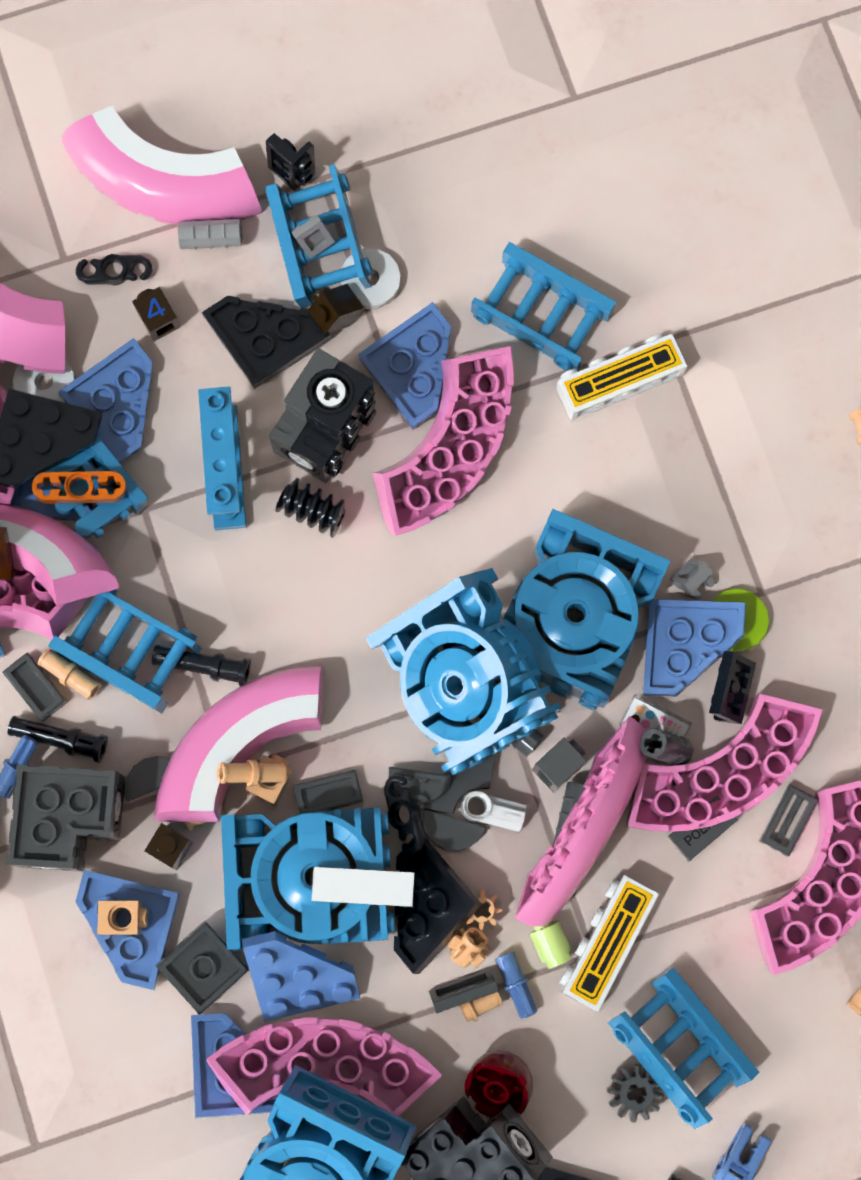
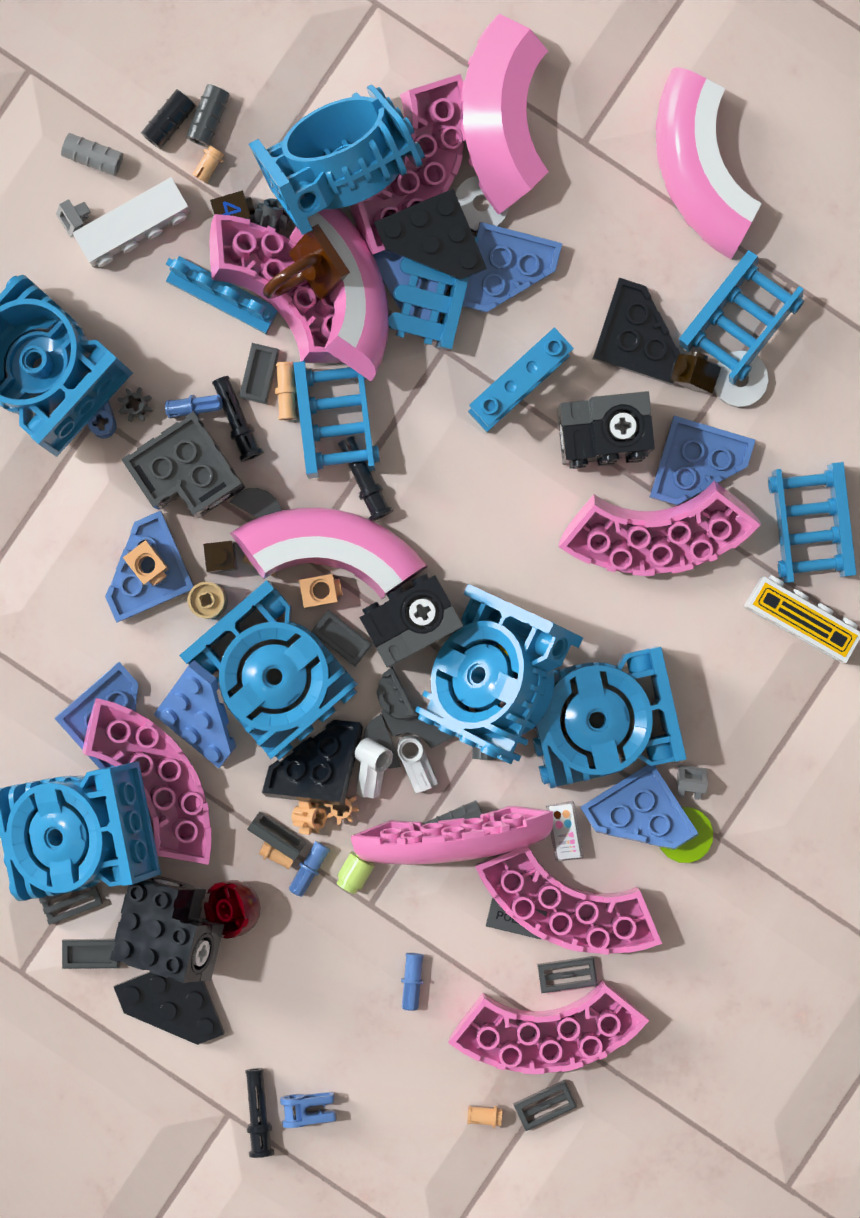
camera: 50 degrees right, 10 degrees up
(69, 477) = (401, 283): orange beam -> none
(100, 276) = (590, 182): black piece -> none
(156, 313) = (593, 243): dark brown brick -> none
(198, 888) = (207, 600): none -> tan wheel
(201, 967) = (156, 643): dark grey tile -> none
(210, 233) = (683, 236): light grey axle -> none
(251, 772) = (312, 577): light nougat pin -> none
(288, 164) = (779, 248): black bracket -> none
(311, 506) = (535, 469): black piece -> none
(313, 236) = (735, 316): light grey tile -> none
(358, 712) = (410, 619): none -> piece
(363, 886) = (291, 716): white tile -> none
(414, 824) = (363, 717): black piece -> none
(462, 847) = (373, 762): none -> white piece
(560, 764) = (483, 787): dark grey brick -> none
(609, 942) = (386, 911): brick -> none
(630, 1103) = (307, 1003): dark grey gear -> none
(666, 747) = (550, 853): dark grey axle -> none
(692, 968) = (412, 981): none -> medium blue axle
(712, 1040) = (371, 1033): dark azure fence -> none
(732, 688) = (630, 868): black bracket -> none

